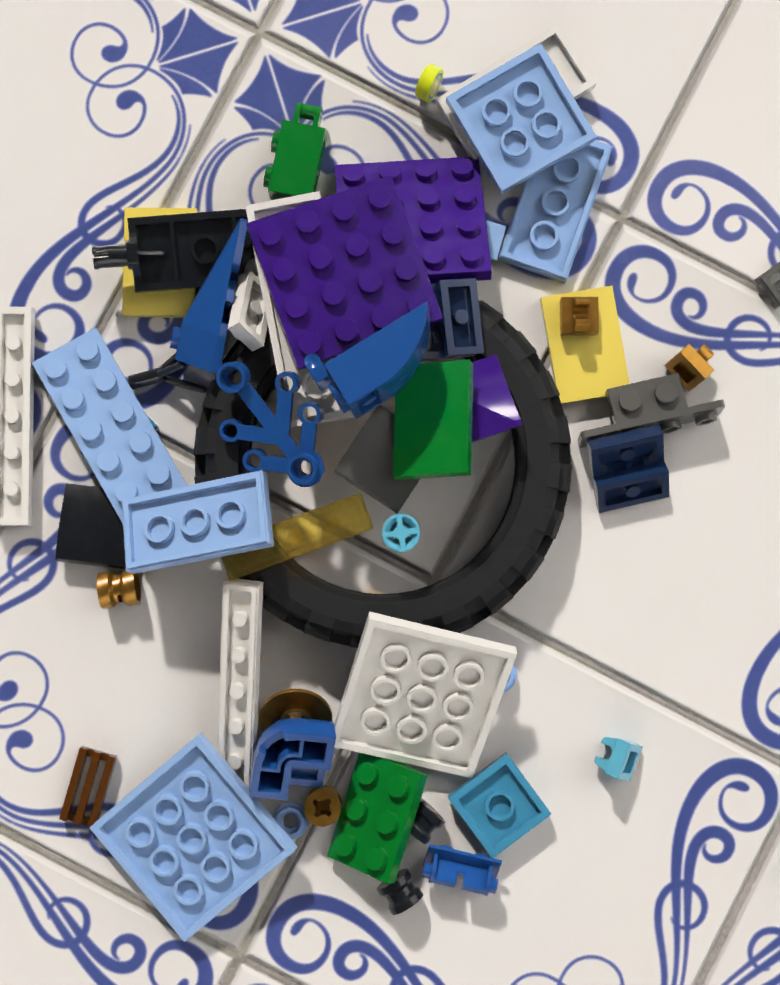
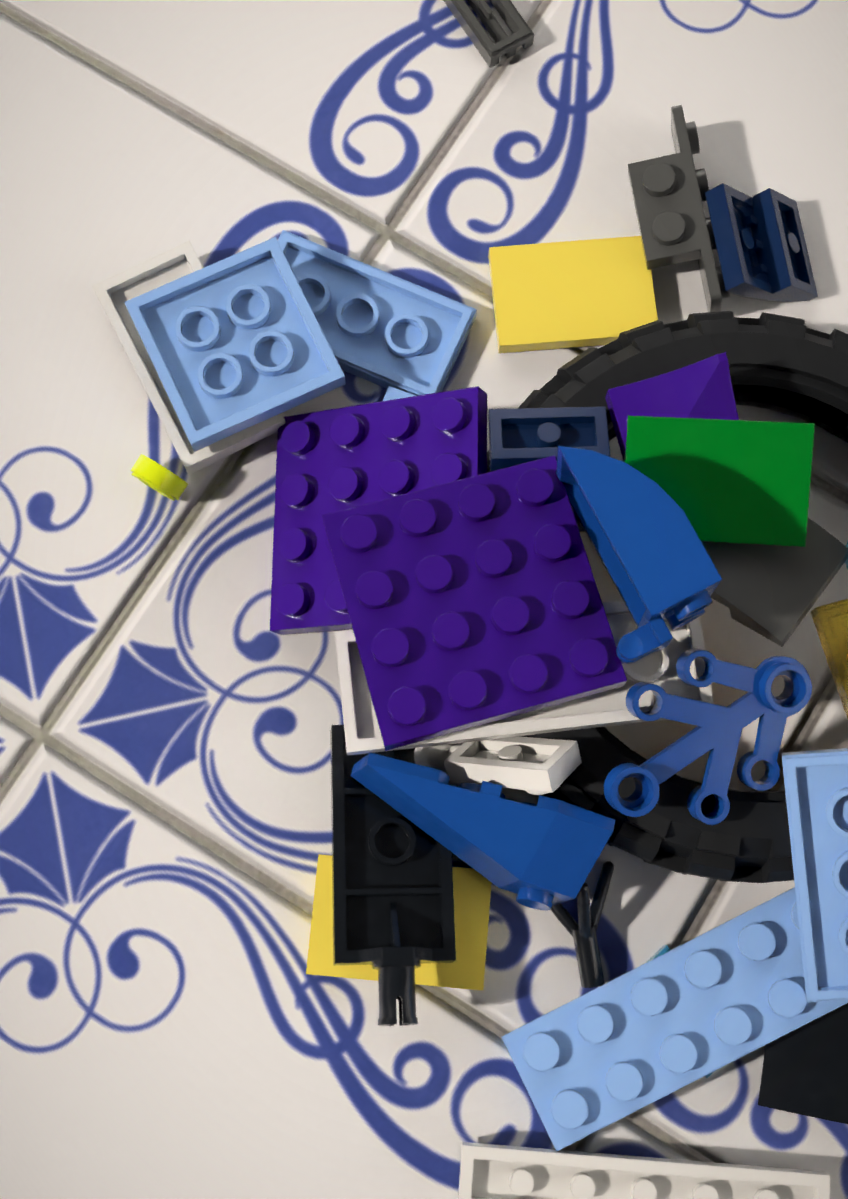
camera: 85 degrees left, 10 degrees down
(298, 154) = (254, 685): green brick -> none
(579, 316) = (534, 292): pearl gold tile -> none
(691, 365) = (614, 149): pearl gold tile -> none

